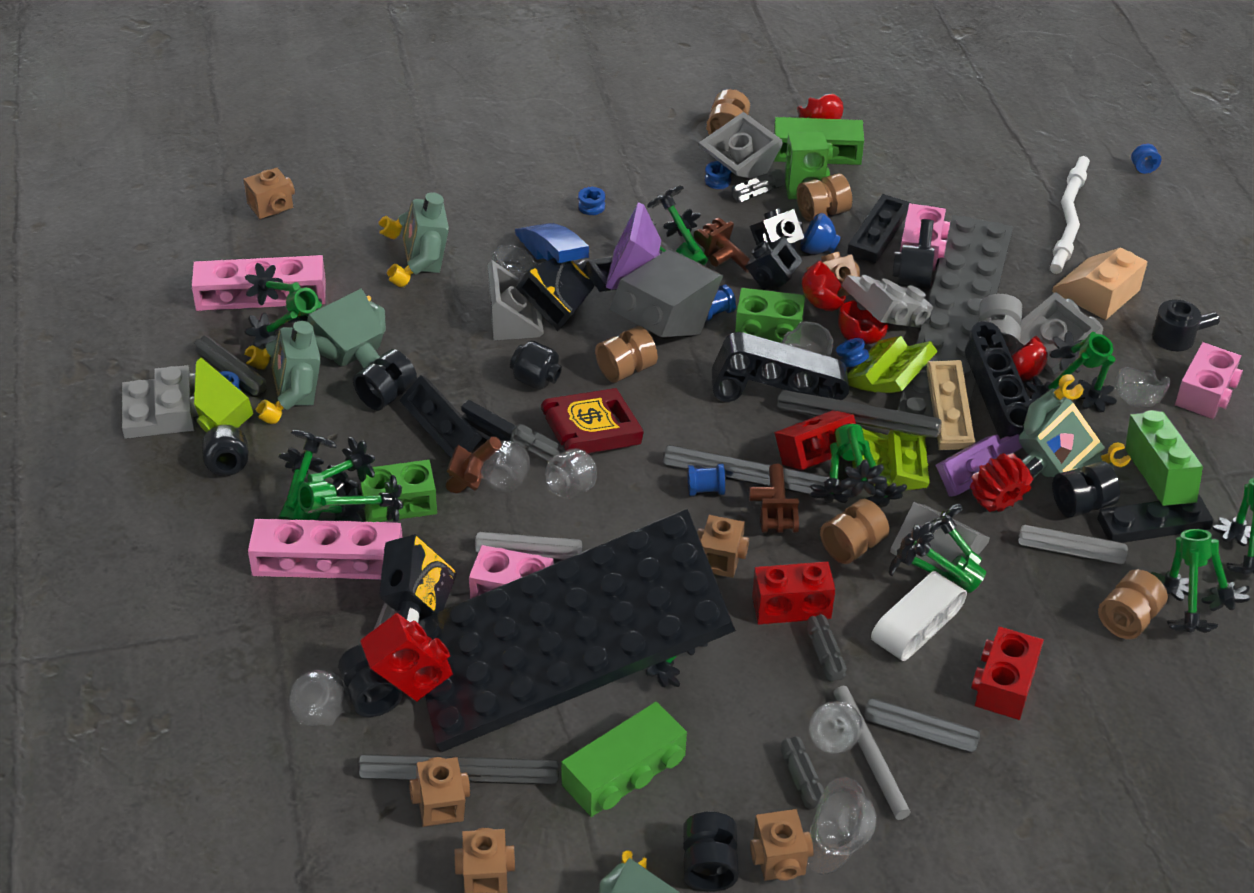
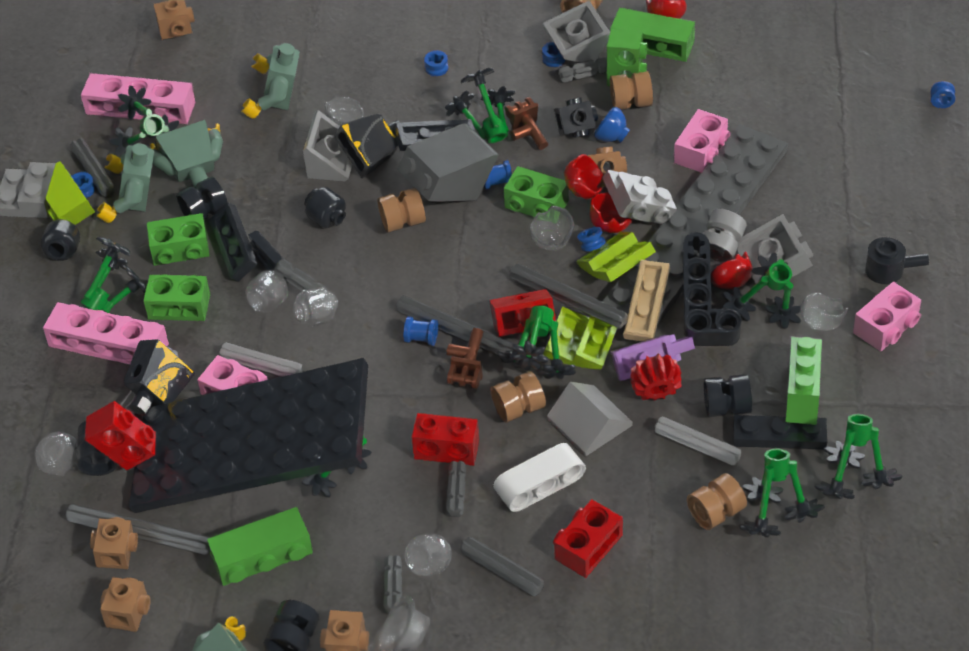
camera: 20 degrees right, 5 degrees up
(322, 497) = (106, 294): plant -> none
(378, 422) = (178, 239): none -> bright green brick
(466, 467) = (234, 286): copper arm -> none
(553, 241) = (379, 100): blue slope -> none
(589, 423) = (344, 266): dark red container -> none
(635, 247) = (436, 115): medium lavender slope -> none
(724, 538) = (405, 389): medium nougat brick -> none
(773, 263) = (557, 147): black brick -> none
(775, 364) = (517, 243): black beam -> none
(876, 762) = (453, 581): light grey bar -> none
(878, 228) = (666, 127): black plate -> none
(915, 263) = (680, 166): black piece -> none
(961, 571) = (589, 447): plant -> none
(1060, 437) = (721, 348): sand green torso -> none
(1064, 247) = (825, 170): white bar -> none
(1104, 282) = (842, 210): light nougat slope -> none

